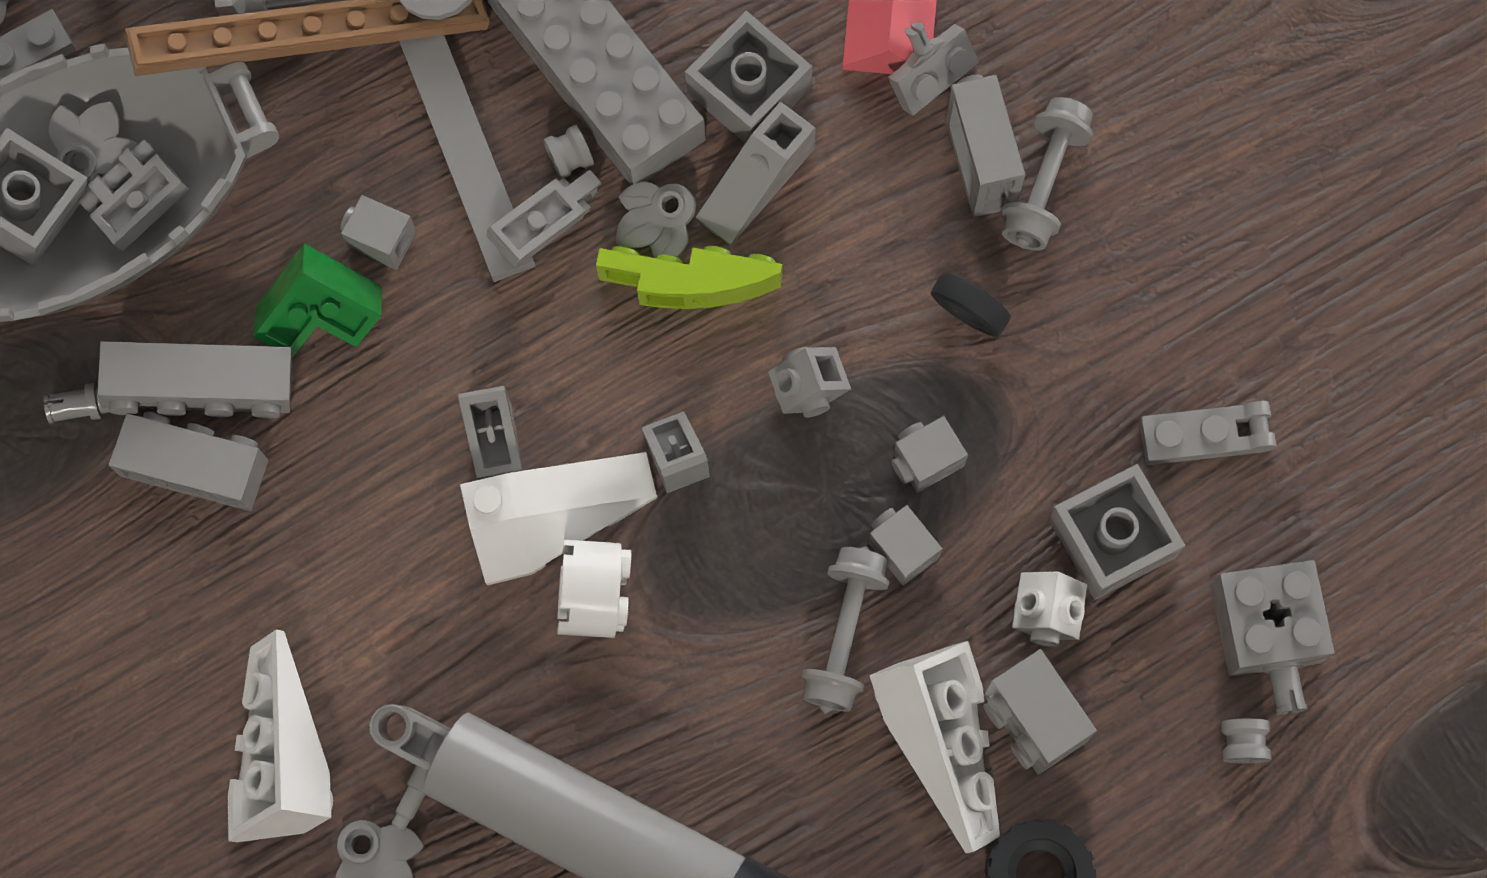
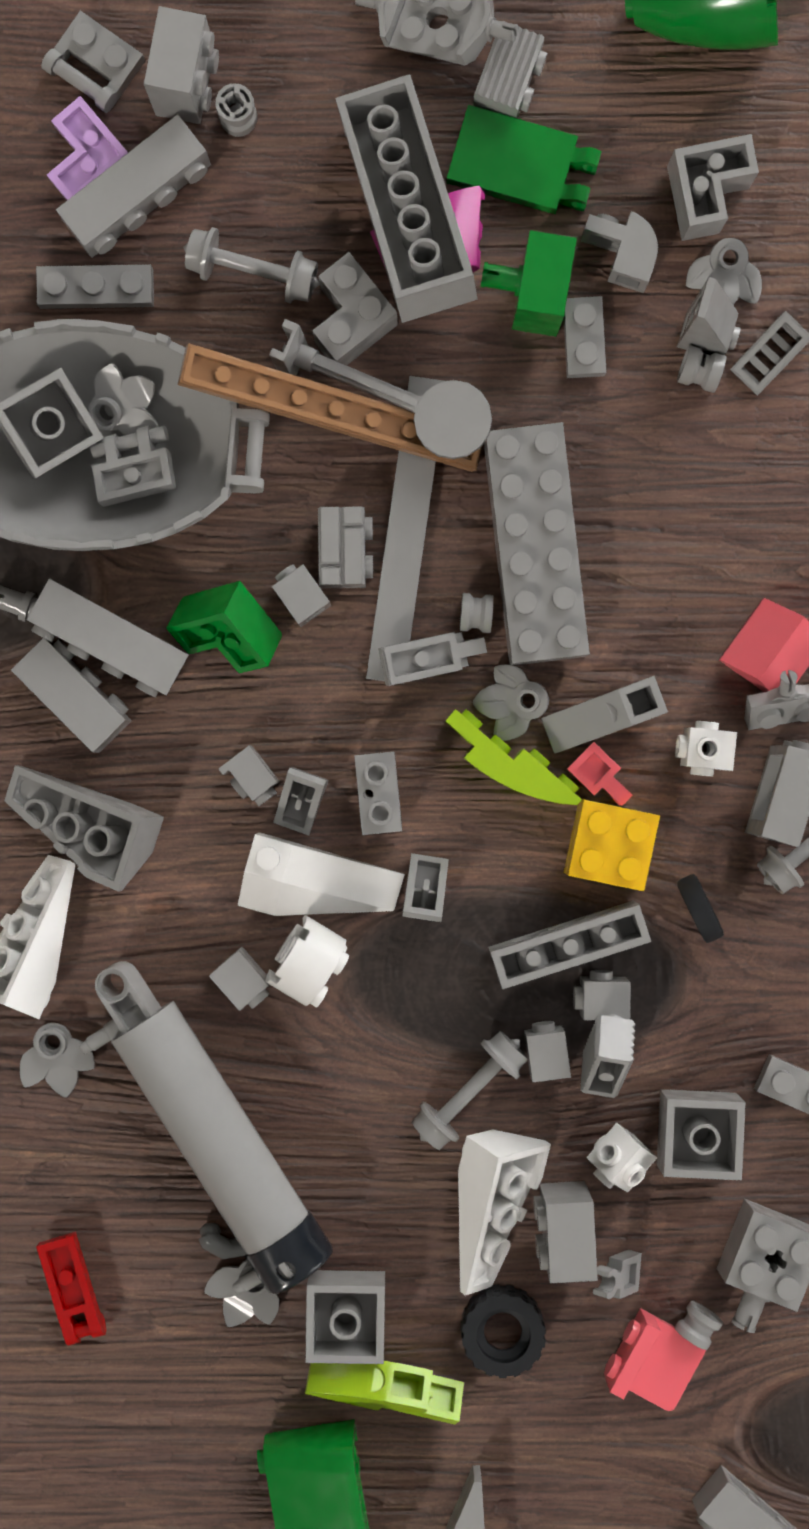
camera: 30 degrees right, 15 degrees up
(279, 585) = (93, 829): none -> light grey wedge
(395, 163) = (343, 547): none -> light grey brick
(424, 437) = (251, 776): none -> light grey brick
(532, 654) = (241, 980): none -> light grey brick
(567, 366) = (382, 810): none -> light grey window
(747, 76) = (642, 636): light grey brick -> none
(784, 236) = (596, 772): none -> coral plate
(809, 380) = (550, 896): light grey brick -> none
(841, 294) = (611, 845): none -> yellow brick
(857, 416) = (569, 944): none -> light grey brick
(880, 150) = (719, 745): none -> white brick
(966, 502) = (607, 1055): none -> light grey brick
(1127, 734) = (620, 1275): none -> light grey plate
(1224, 810) = (652, 1362): none -> coral bracket

